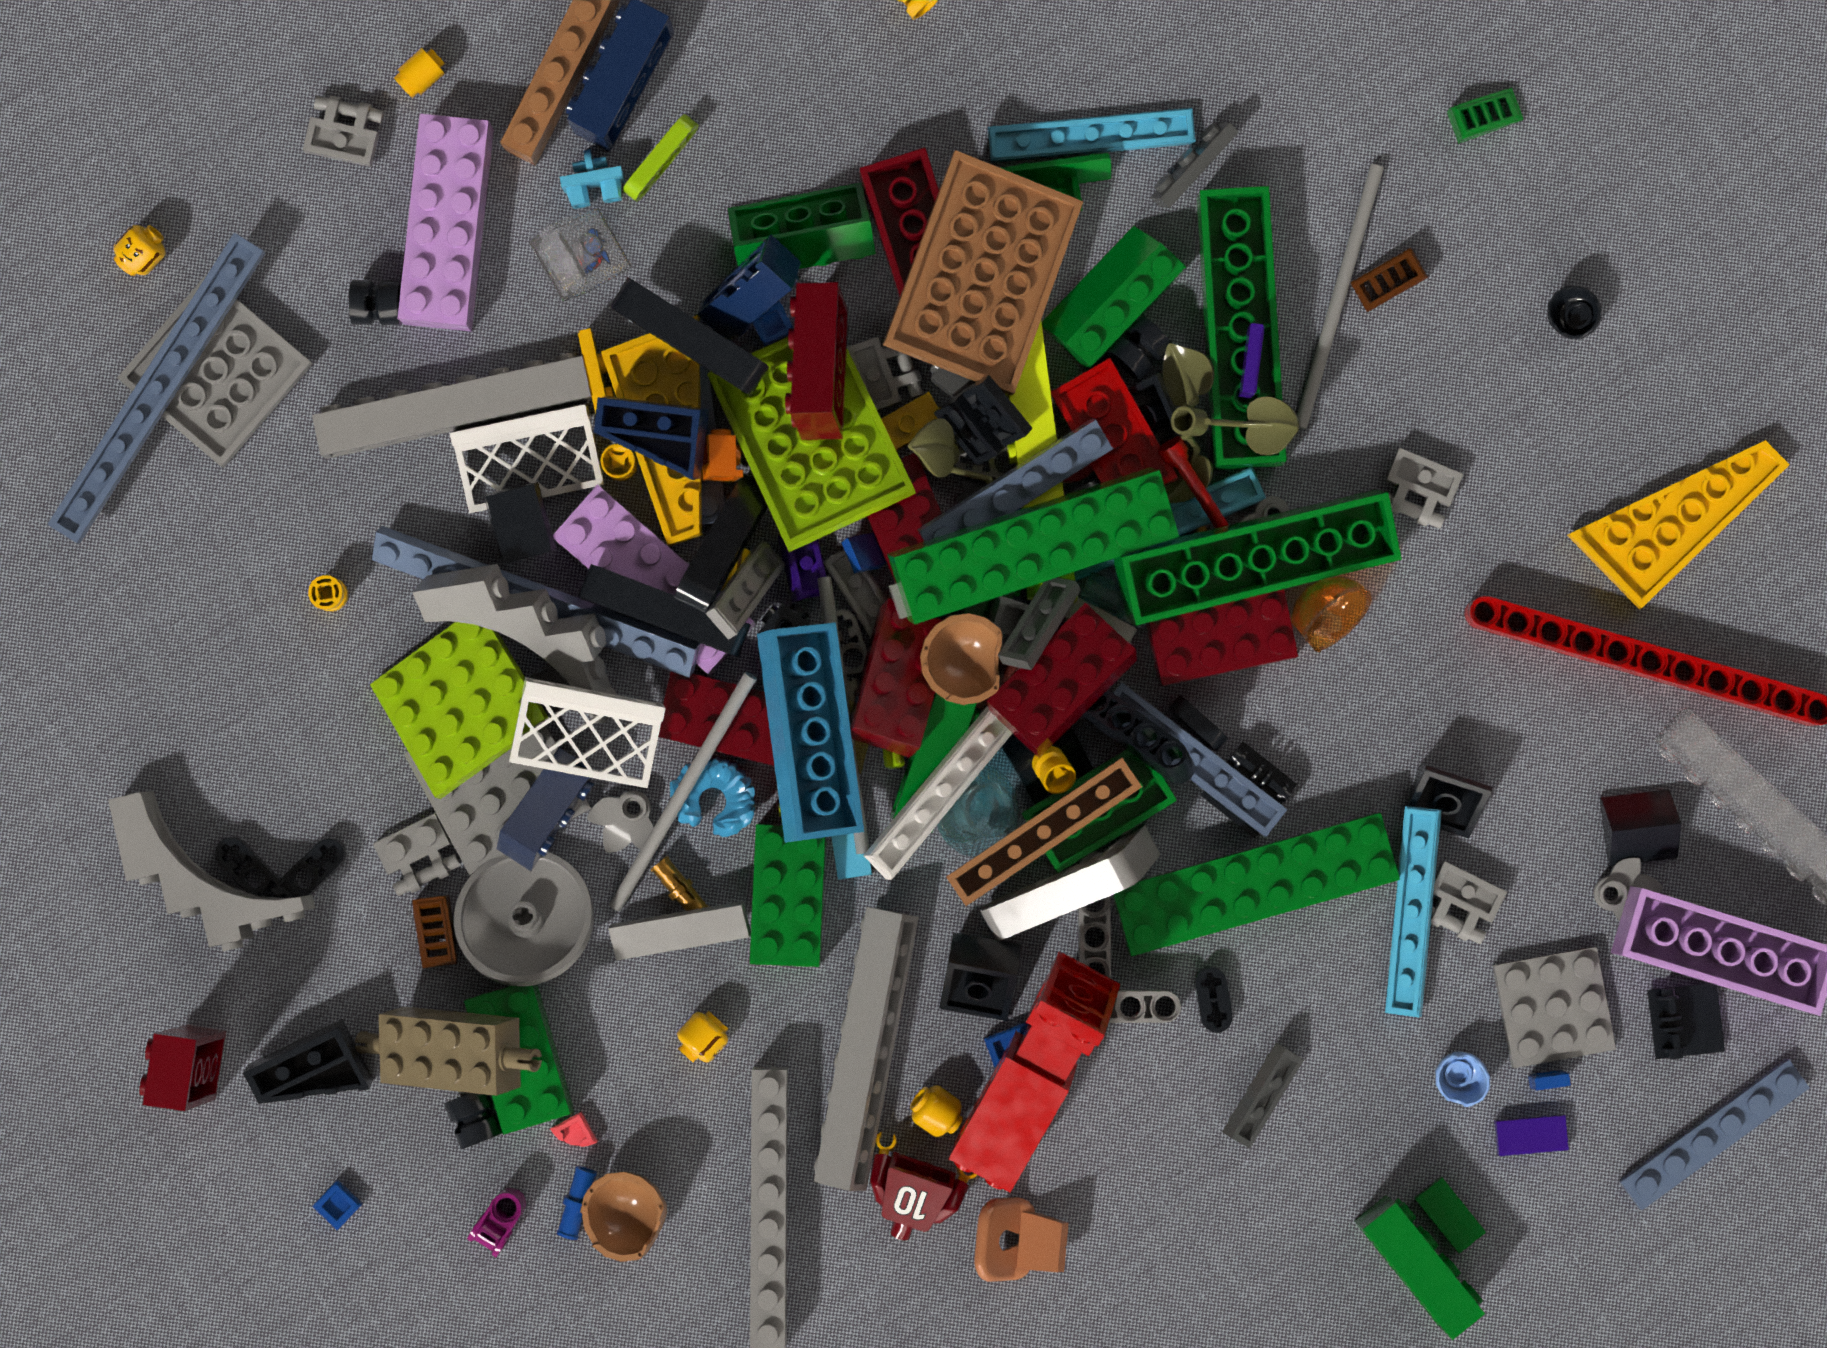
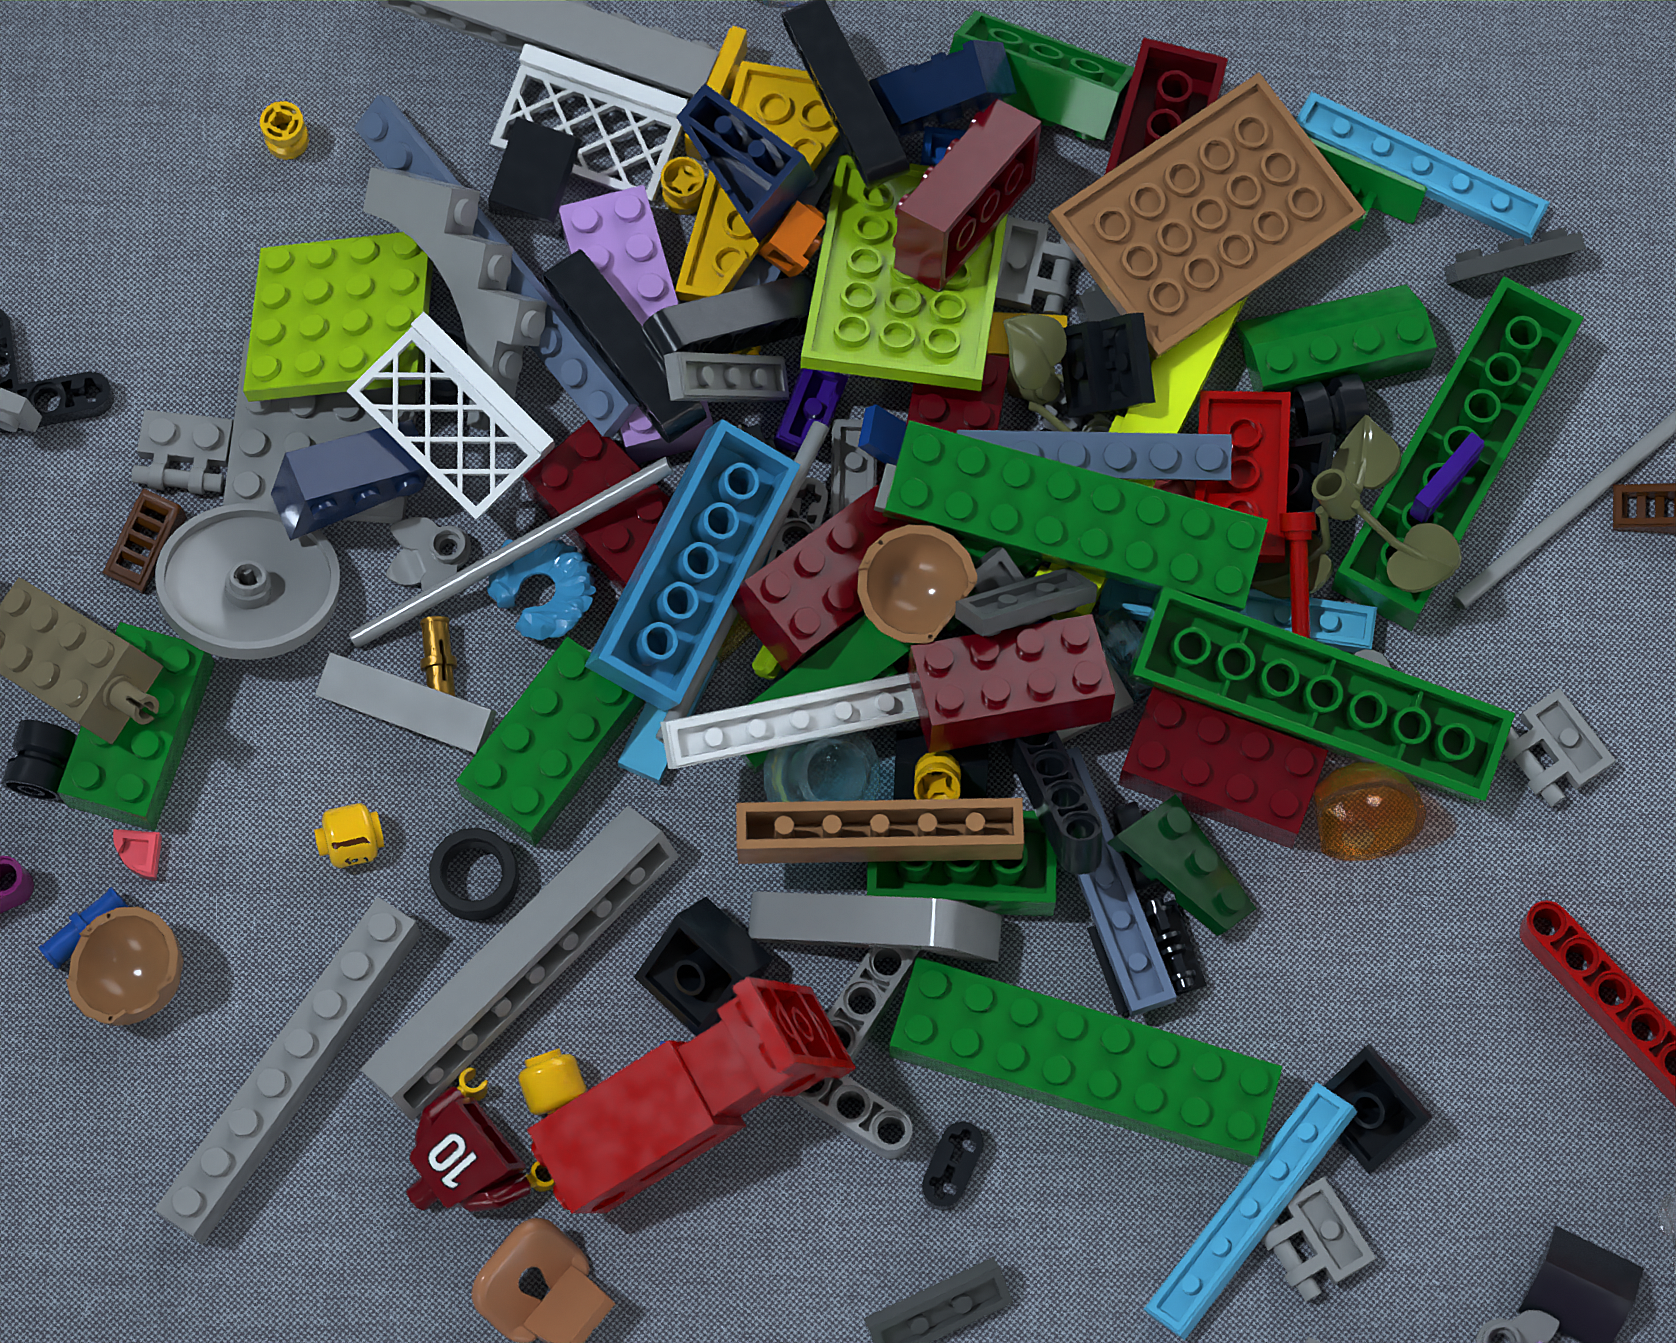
camera: 30 degrees right, 15 degrees down
(777, 1027) = (470, 839): none -> black tyre
(1232, 716) = (1183, 859): none -> dark green wing

